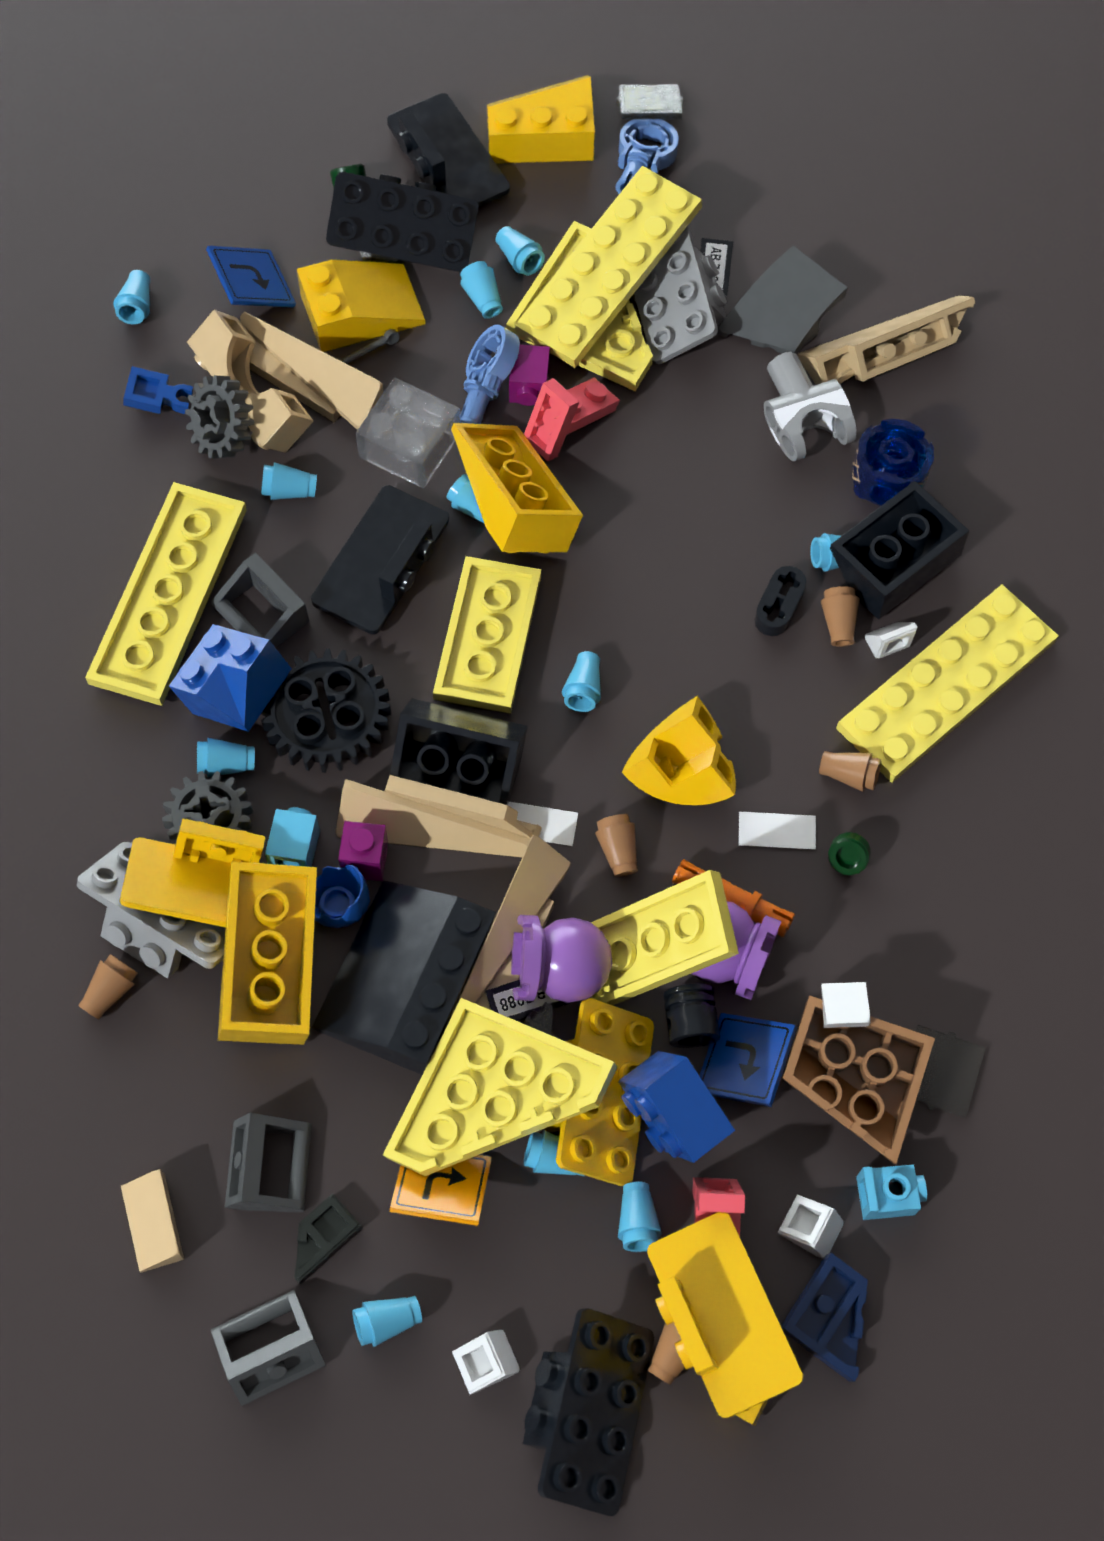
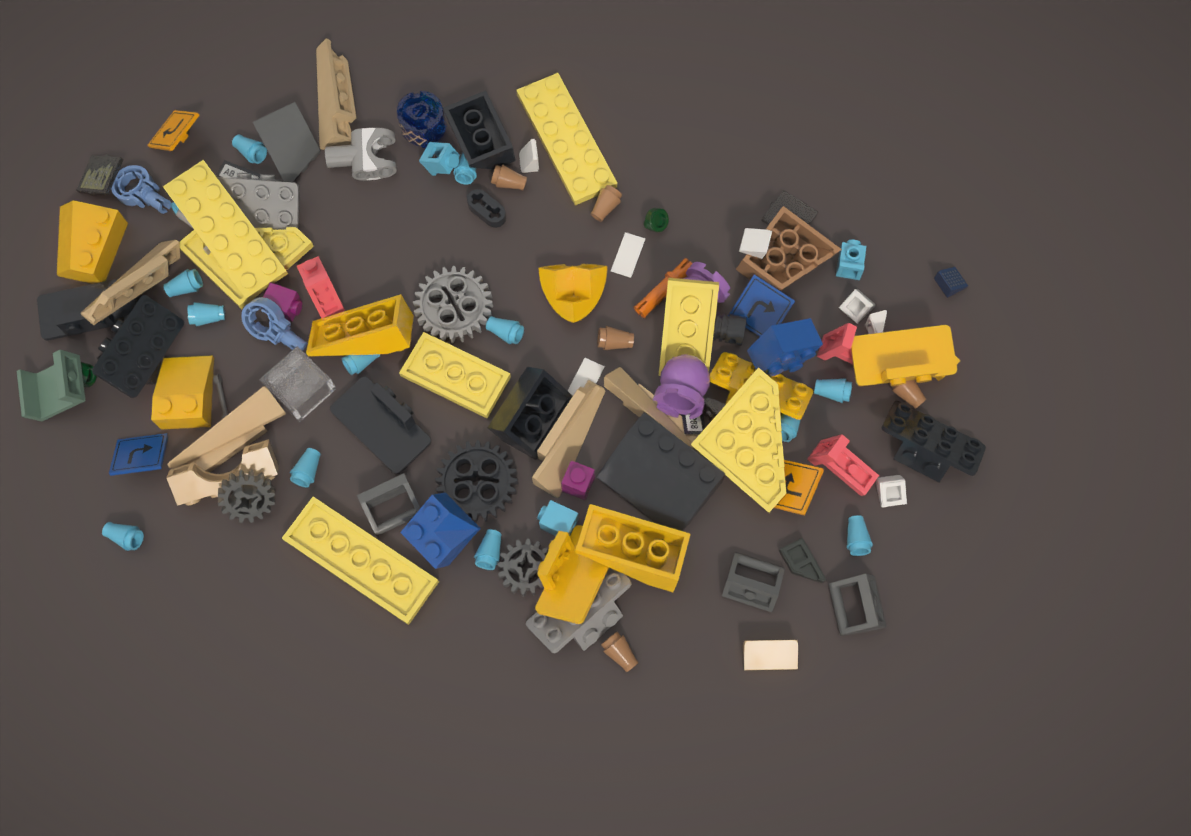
camera: 70 degrees left, 5 degrees up
(151, 391) = (204, 540): blue plate -> none
(312, 147) = (52, 389): none -> sand green panel
(340, 896) = (604, 495): blue hair -> none
(493, 187) = (135, 281): none -> tan wedge
(501, 1265) = (843, 463): none -> coral bracket
(625, 618) = (433, 314): none -> light grey gear
(748, 162) = (173, 130): none -> light orange piece
(757, 261) = (251, 149): none -> medium azure cone
(780, 1263) = (876, 322): none -> white slope
(829, 1316) = (907, 309): dark blue wing -> none
(830, 514) = (446, 158): none -> medium azure brick
(915, 1384) = (950, 281): none -> dark blue slope

